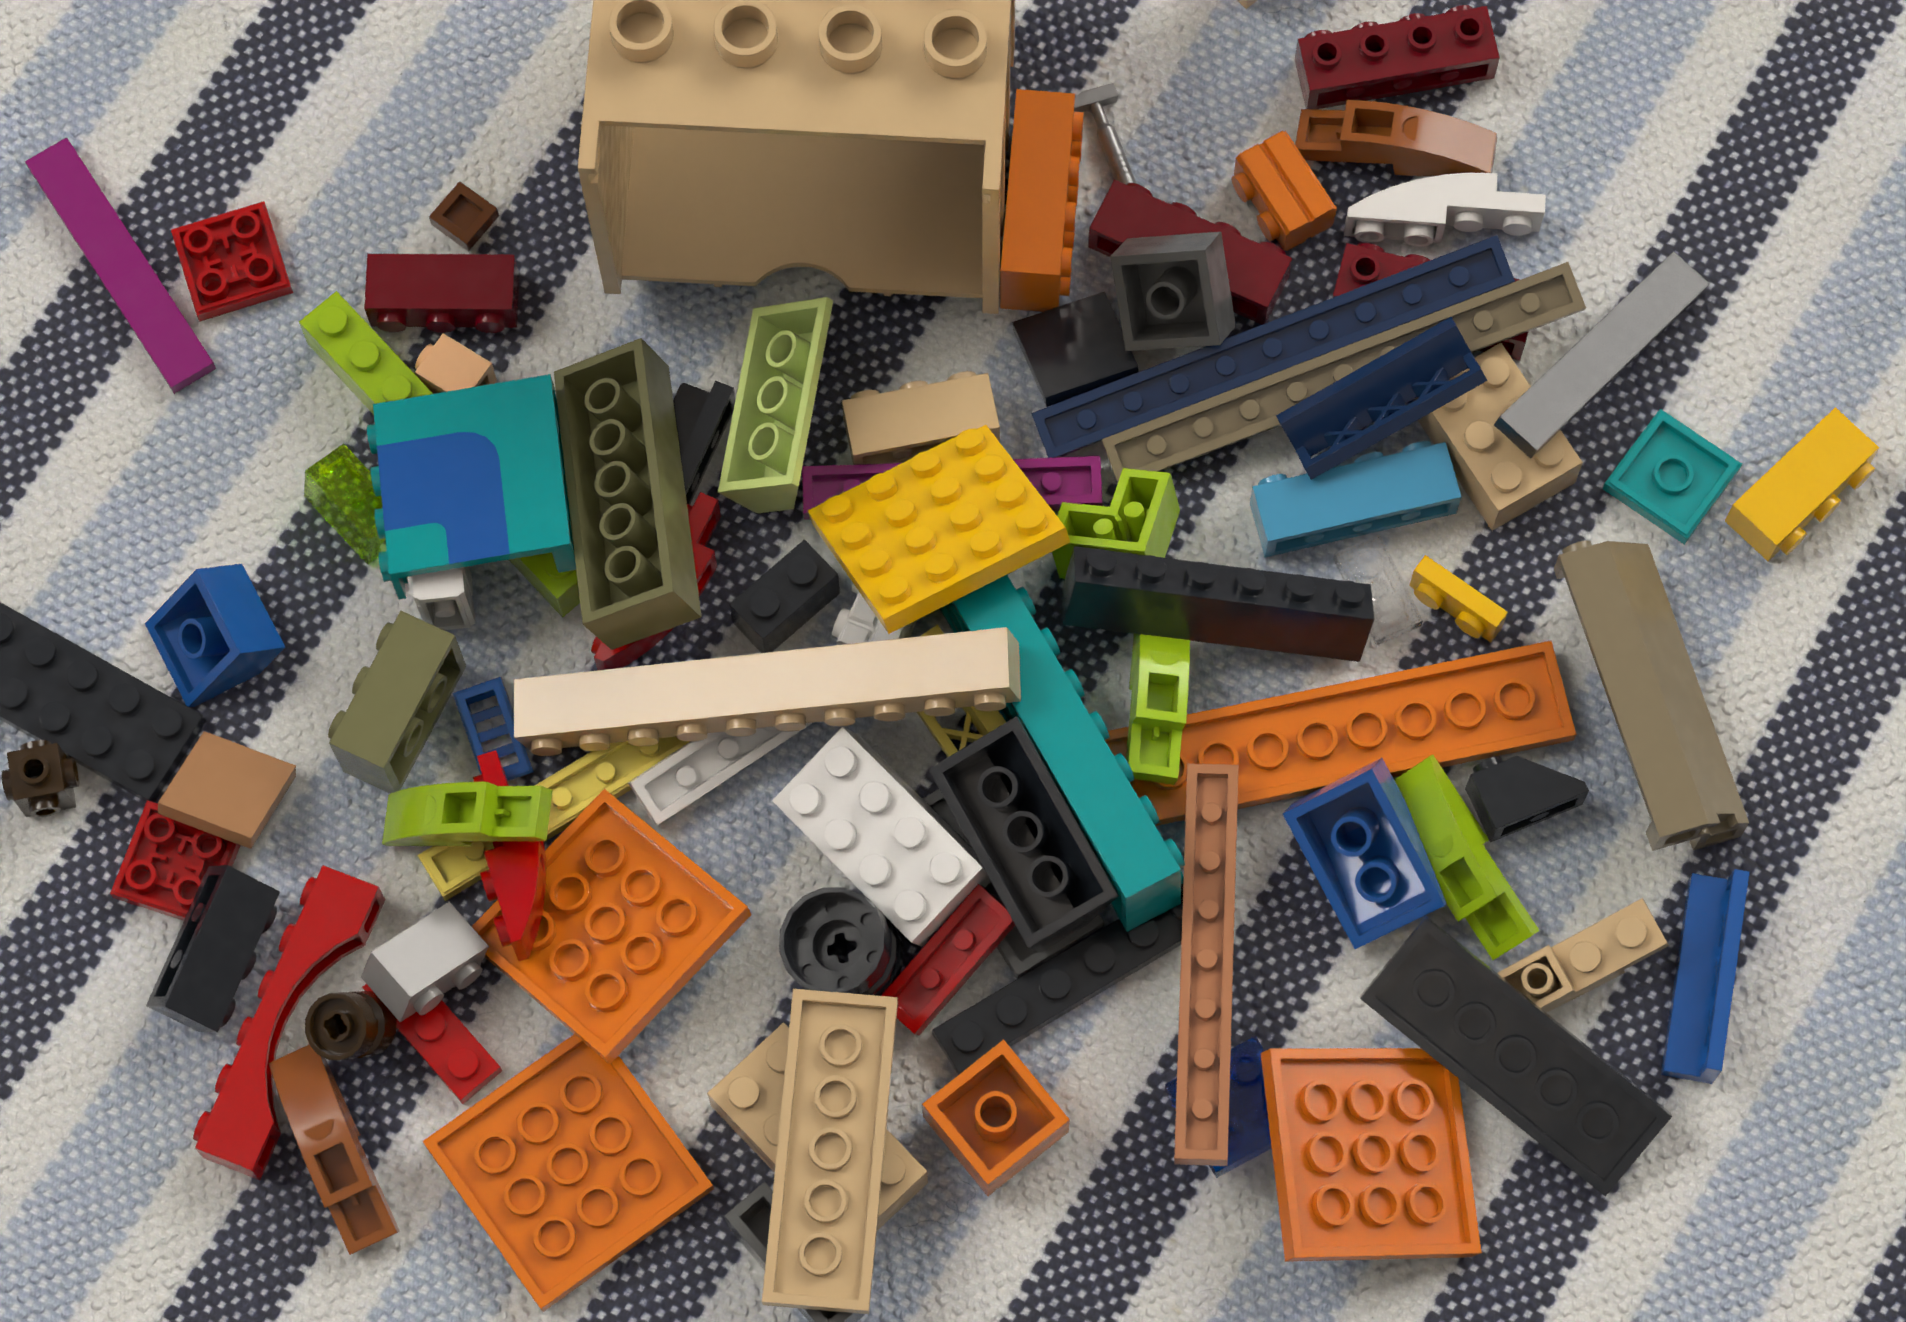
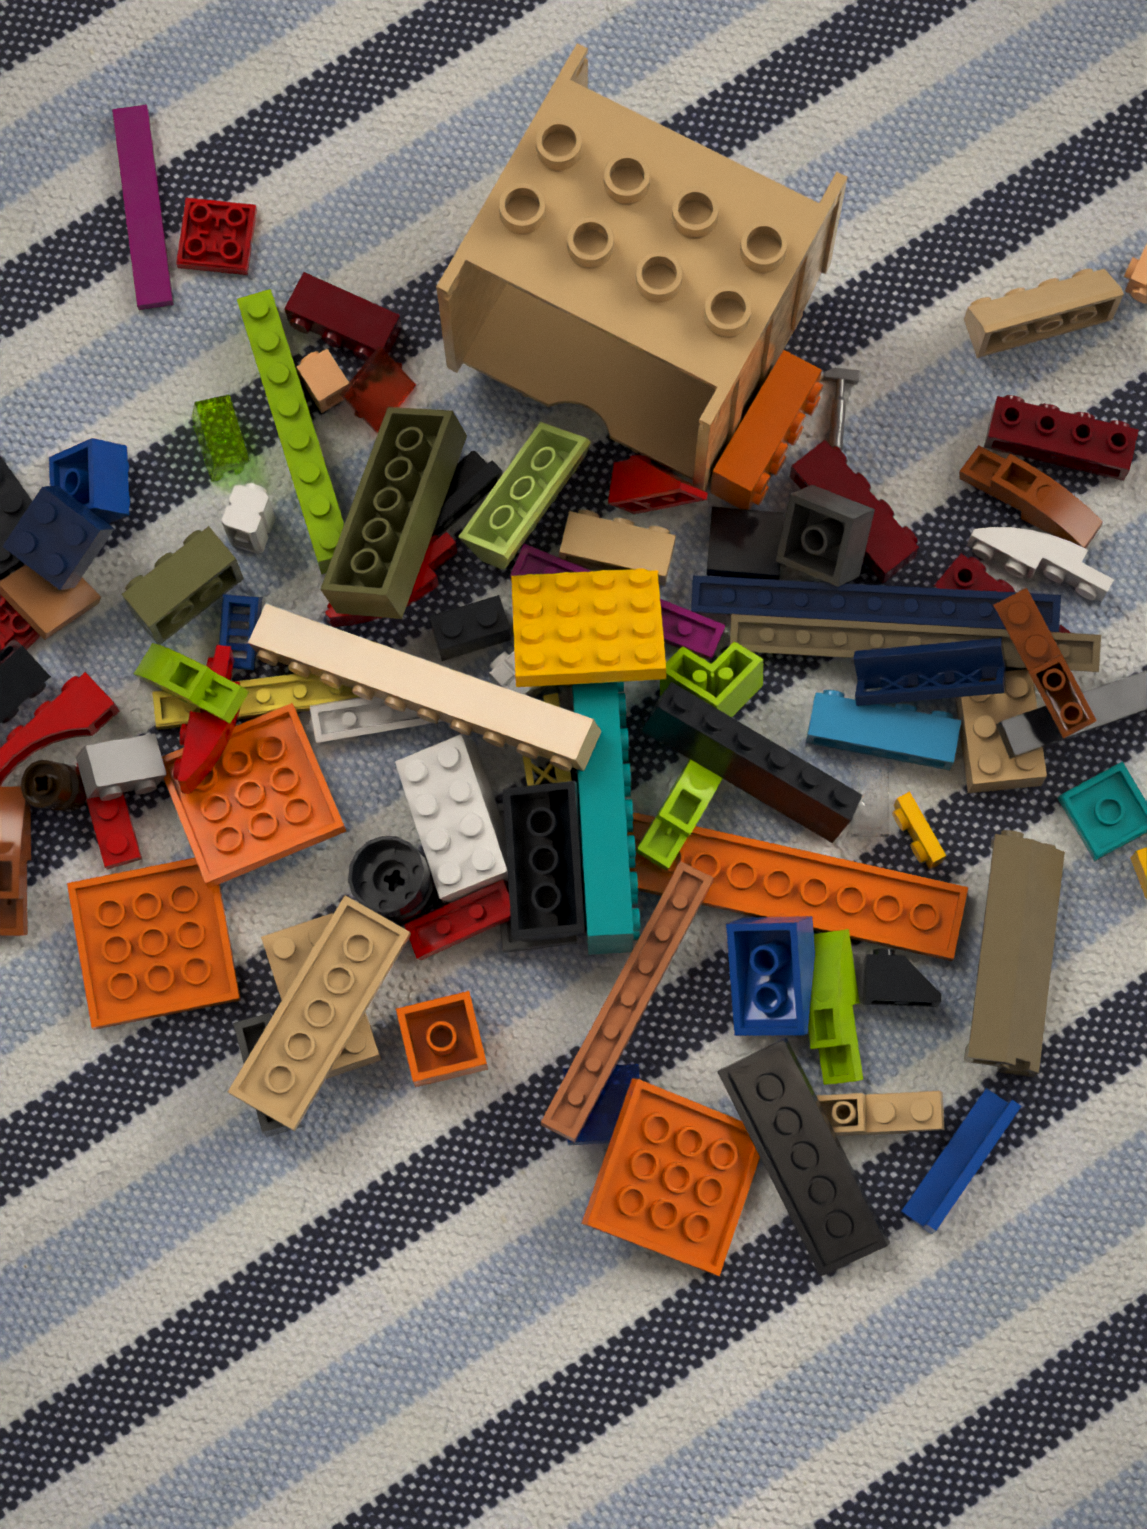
camera: 25 degrees right, 5 degrees up
(211, 710) = (58, 537): none -> dark blue brick
(464, 216) = (381, 272): reddish brown plate -> none
(470, 479) = (296, 457): teal panel -> none
(527, 346) = (376, 387): none -> clear red piece
(922, 330) = (645, 487): none -> red slope
(1057, 987) = (524, 970): black plate -> none
(1283, 191) = (938, 497): orange brick -> none
(1519, 323) = (1045, 662): none -> dark orange slope

